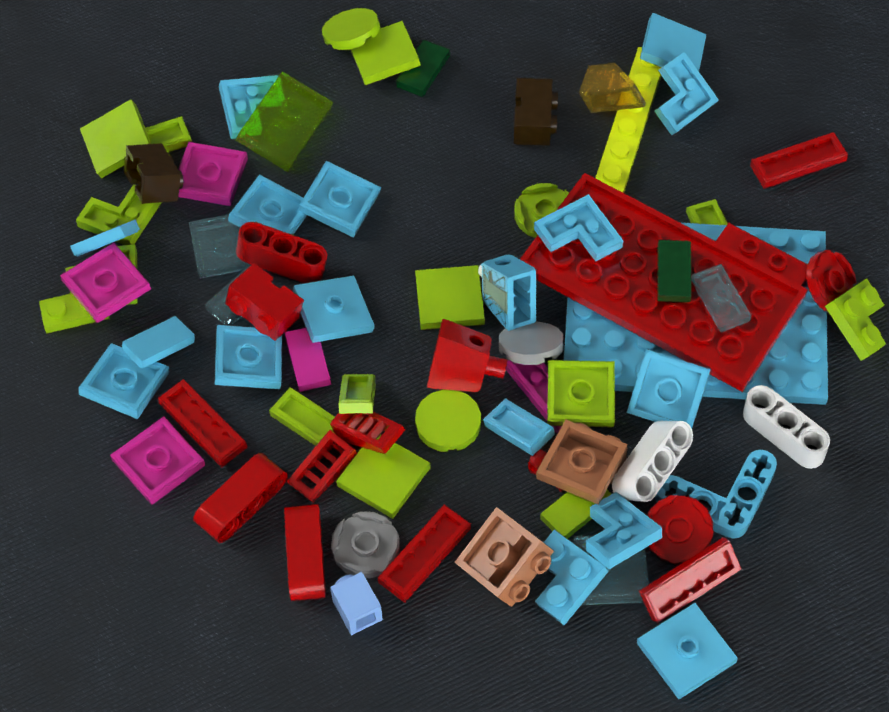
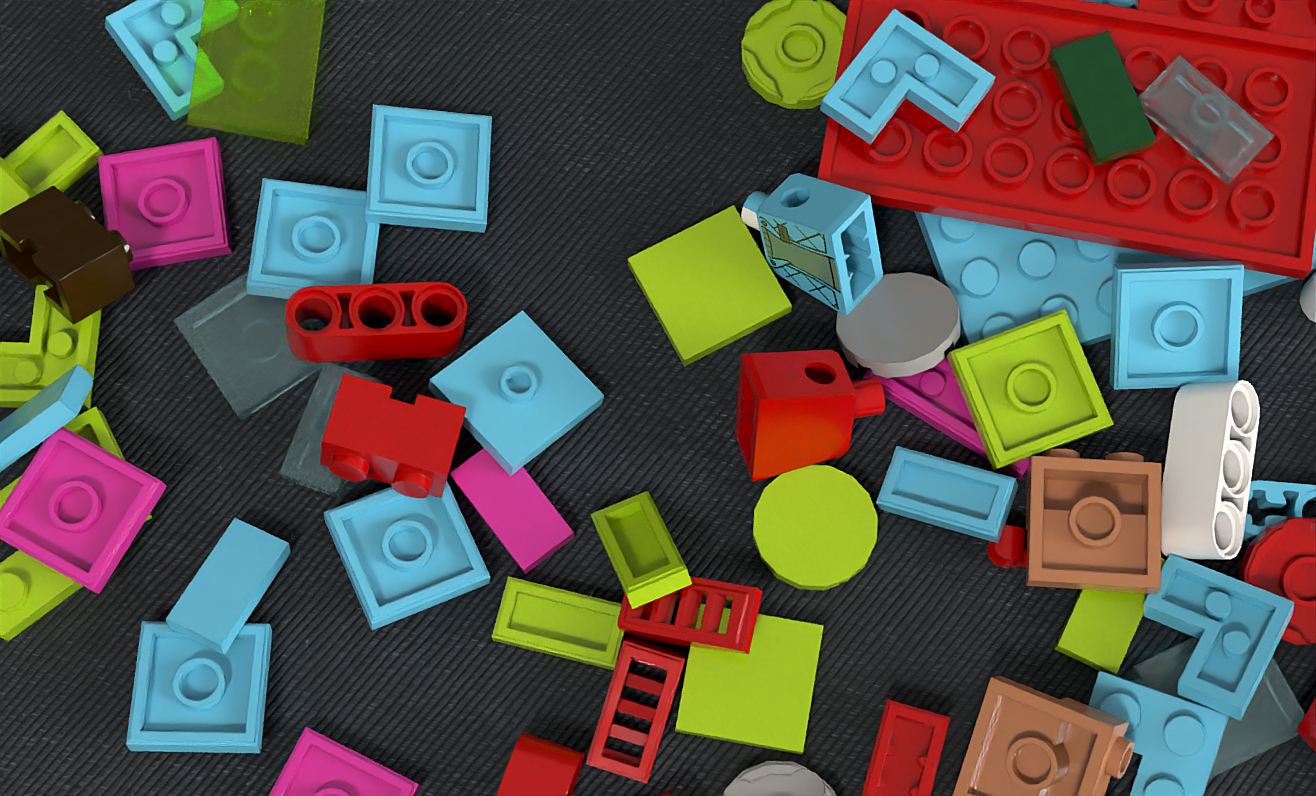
camera: 20 degrees left, 15 degrees up
(202, 423) = (382, 712): red plate -> none

